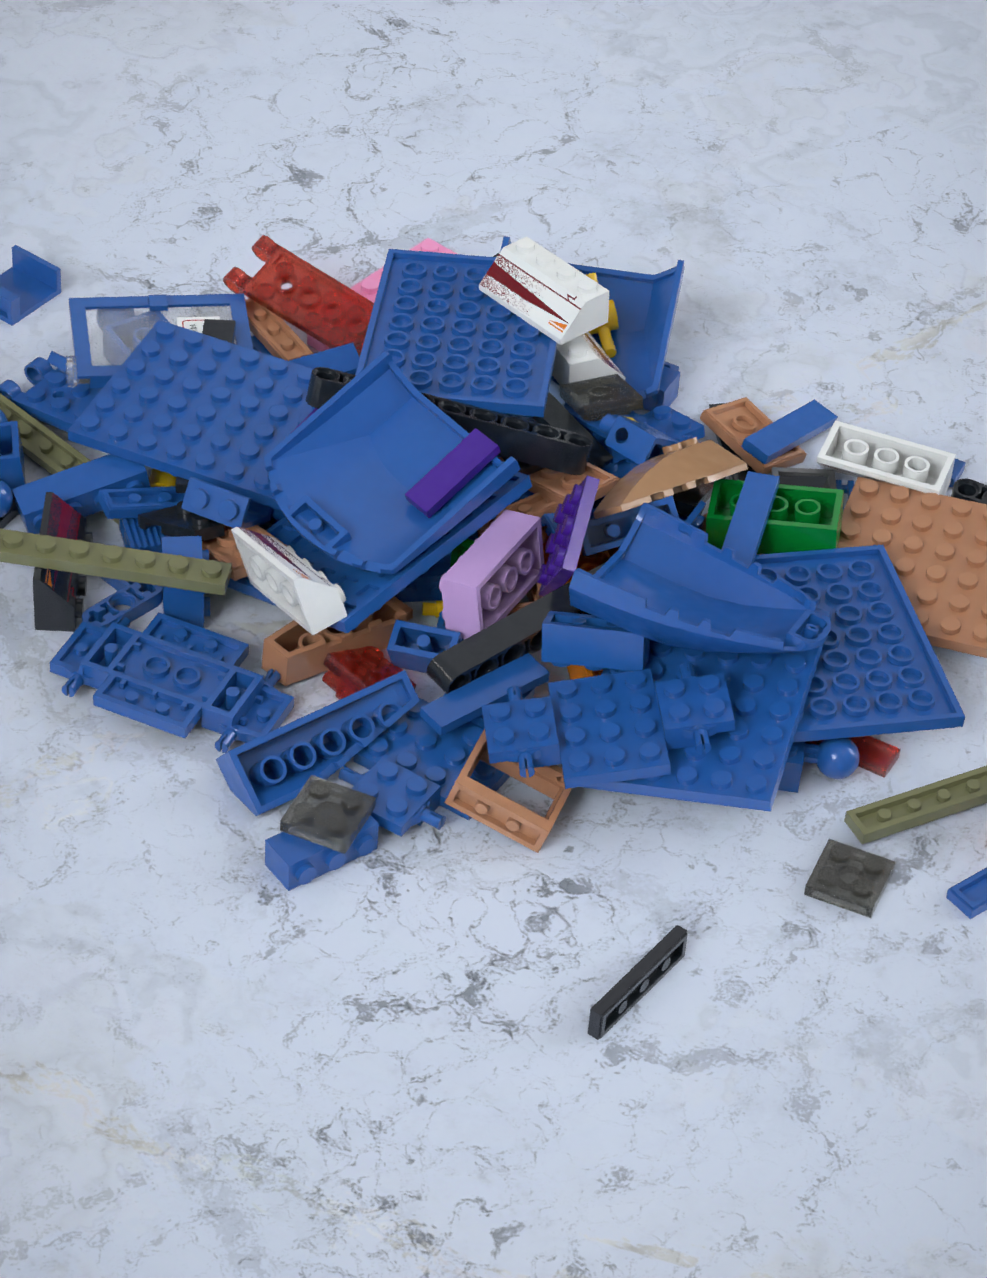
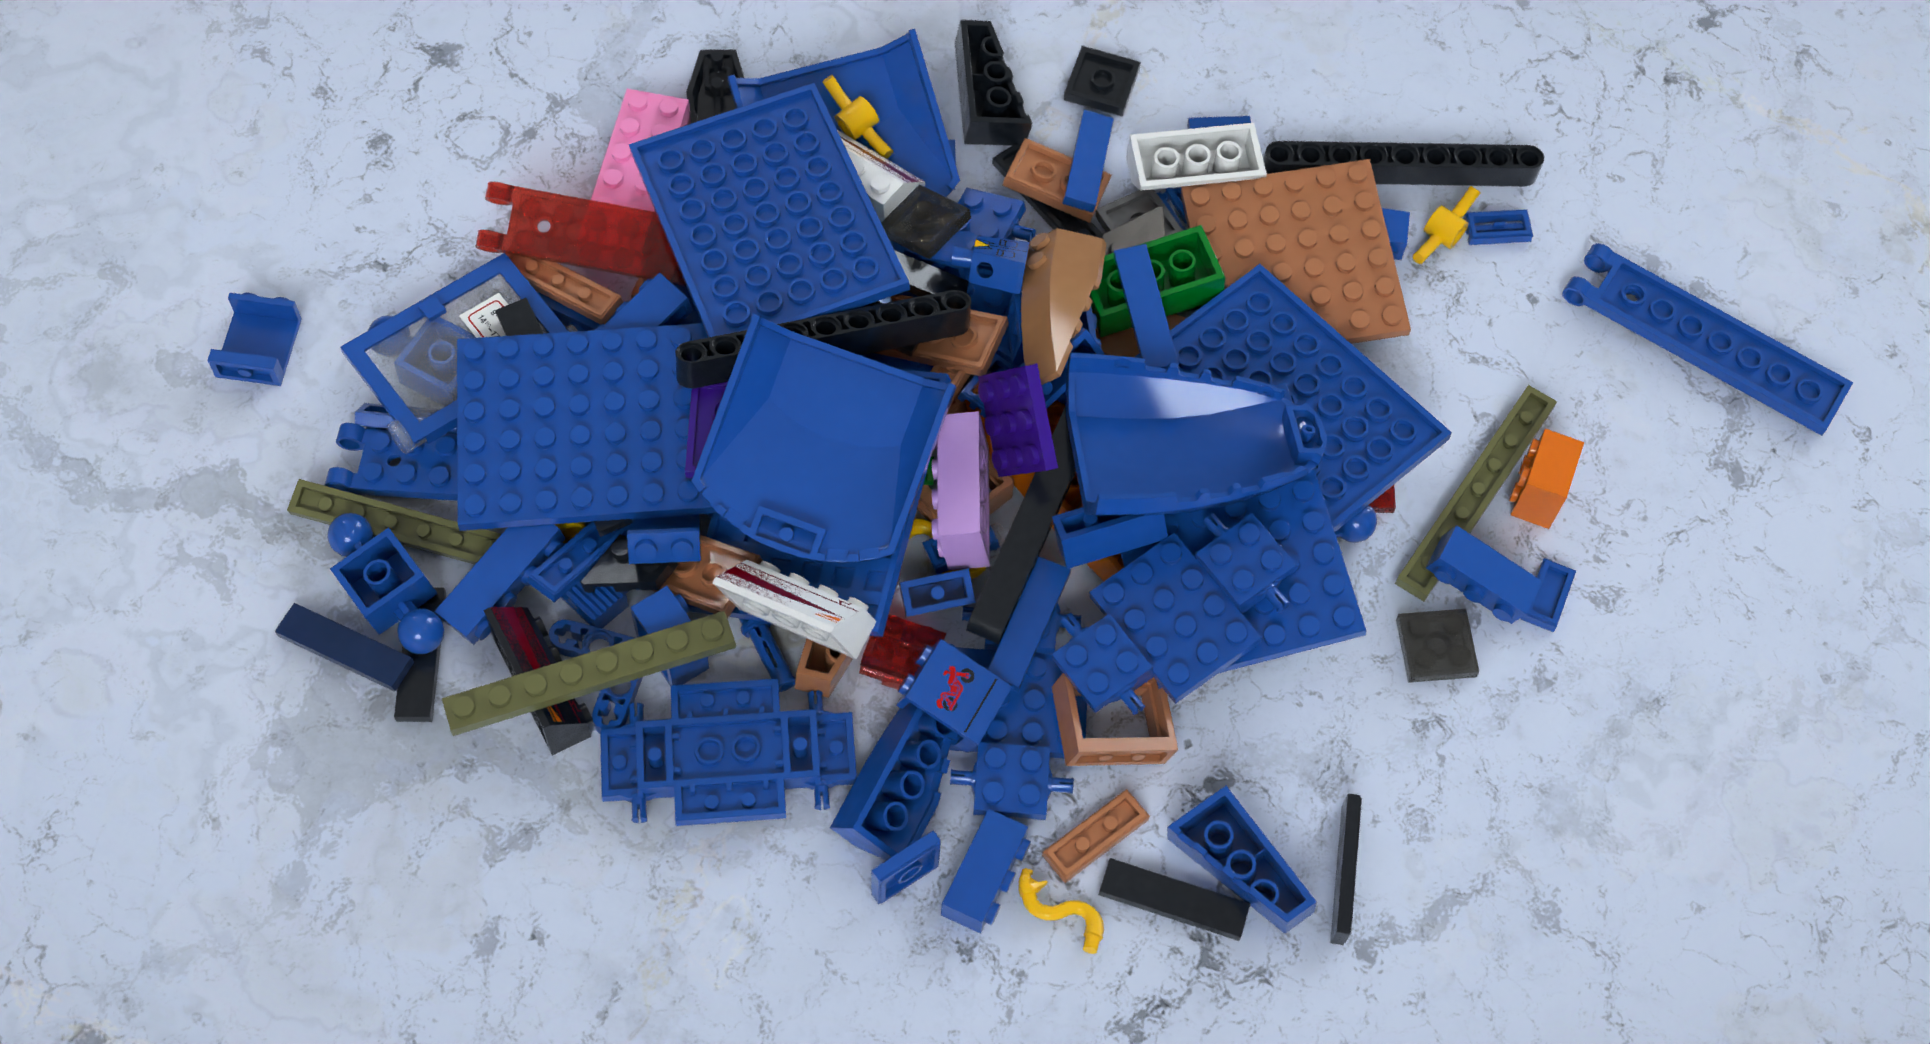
camera: 30 degrees left, 20 degrees up
(253, 803) = (905, 867): none -> blue tile
(261, 617) = (752, 630): none -> blue pin
(327, 814) = (981, 844): clear smoke plate -> none
(352, 876) = (1094, 924): none -> yellow animal
(384, 706) = (954, 692): none -> blue panel
(437, 869) = (1095, 836): none -> nougat tile
(452, 473) = (883, 412): dark purple tile -> none
(471, 939) = (1174, 899): none -> black tile
(546, 291) = (823, 138): white slope -> none
(546, 925) = (1241, 857): none -> blue wedge
(734, 356) = (988, 99): none -> black wedge
(848, 390) = (1102, 81): none -> black plate
(926, 838) = (1484, 575): none -> blue brick

